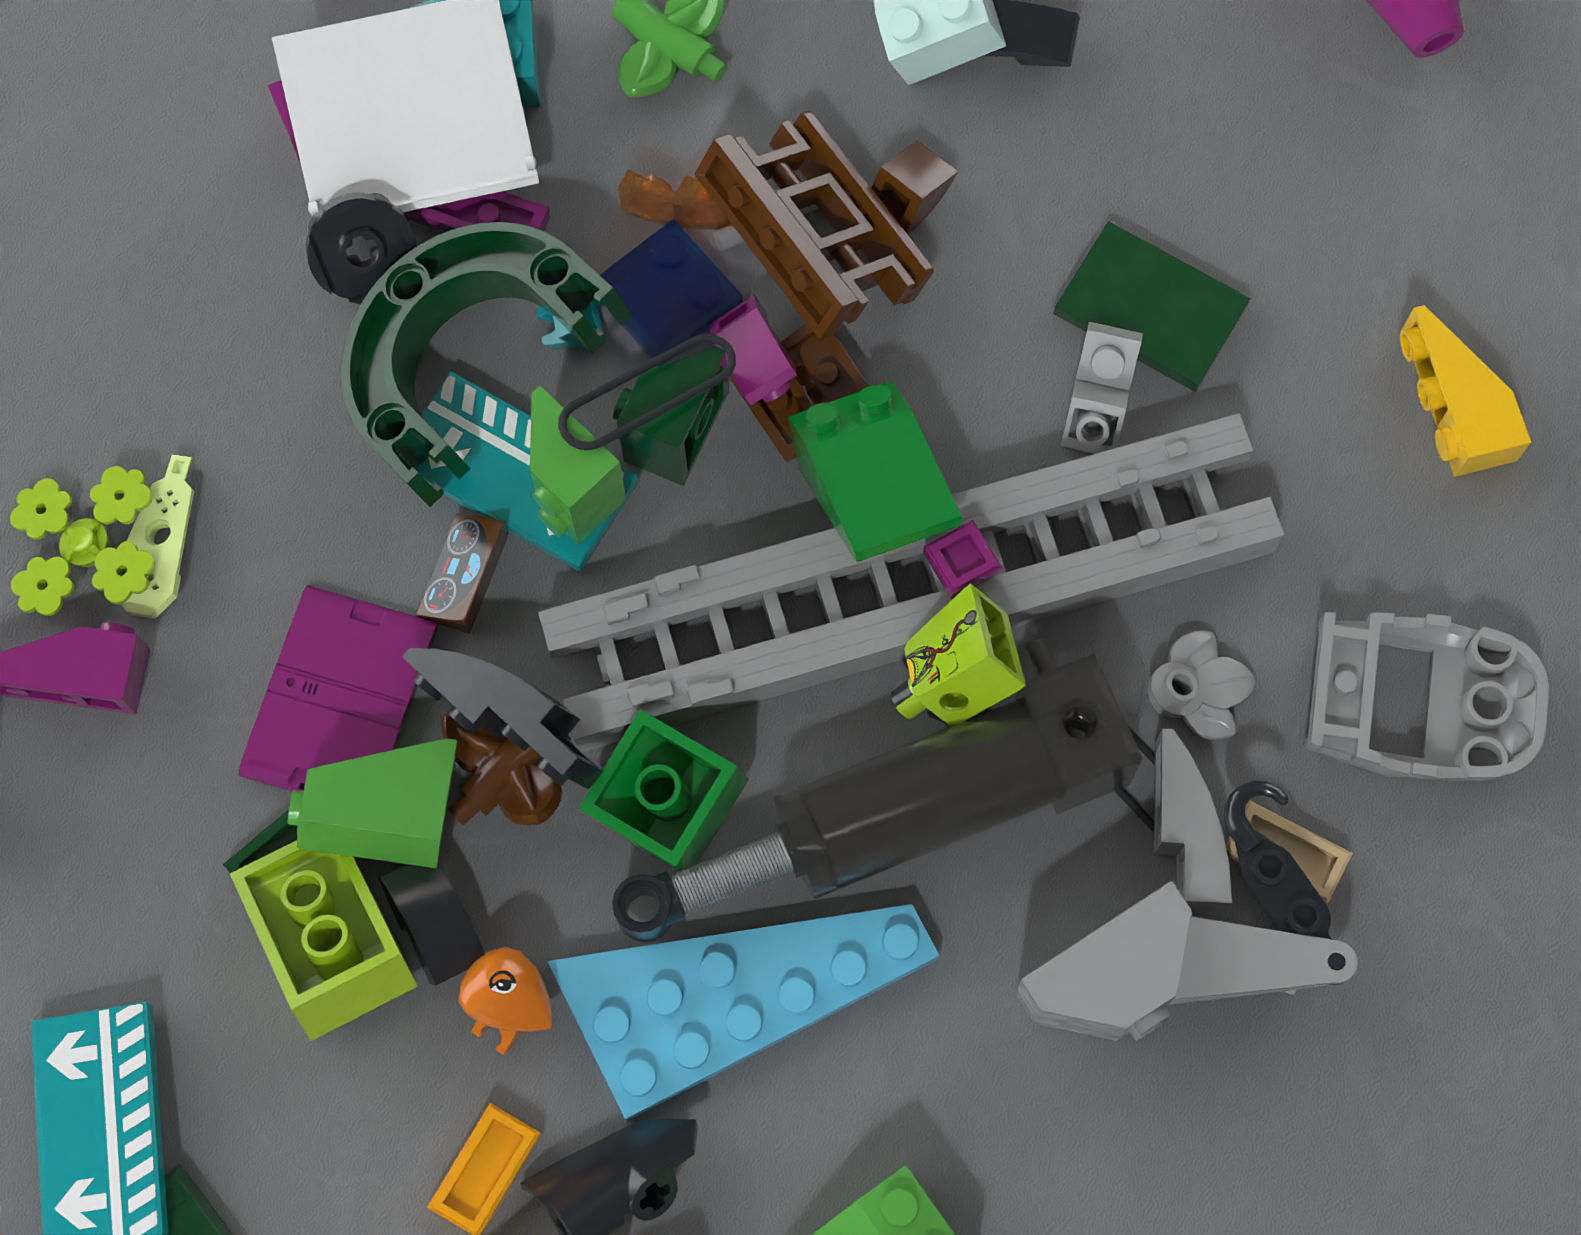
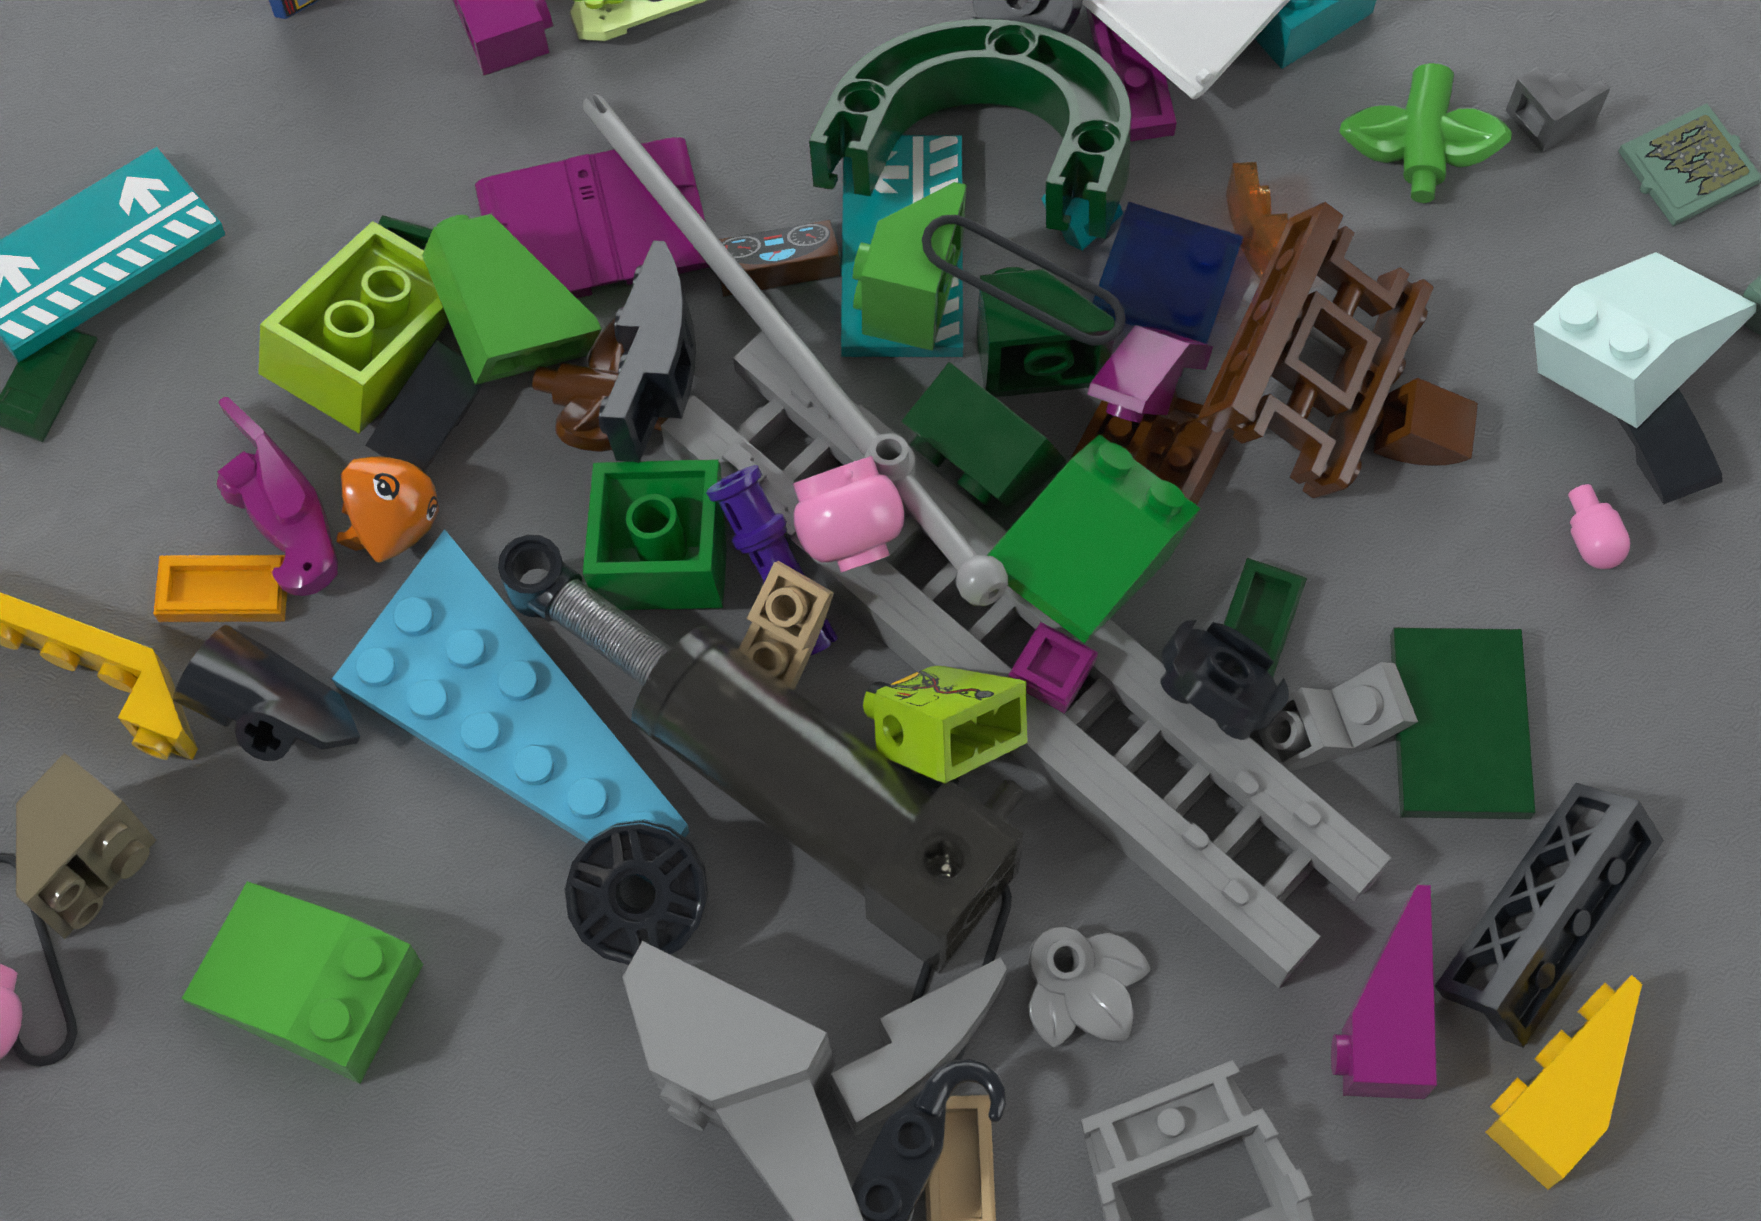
camera: 60 degrees right, 5 degrees down
(446, 1083) = (281, 507): none -> magenta animal
(724, 712) = (759, 530): none -> dark purple pin
(729, 581) = (979, 577): none -> light grey bar
(739, 505) = (980, 437): none -> dark green slope
(757, 634) = (848, 514): none -> bright pink piece
(802, 737) = (786, 623): none -> tan slope
(986, 977) = (643, 849): none -> black wheel
(994, 399) = (1265, 606): none -> dark green tile
(1038, 445) = (1223, 678): none -> black plate
(1063, 122) = (1597, 530): none -> bright pink cylinder
(1343, 324) = (1567, 911): none -> black fence
(1346, 485) = (1390, 1032): none -> magenta slope

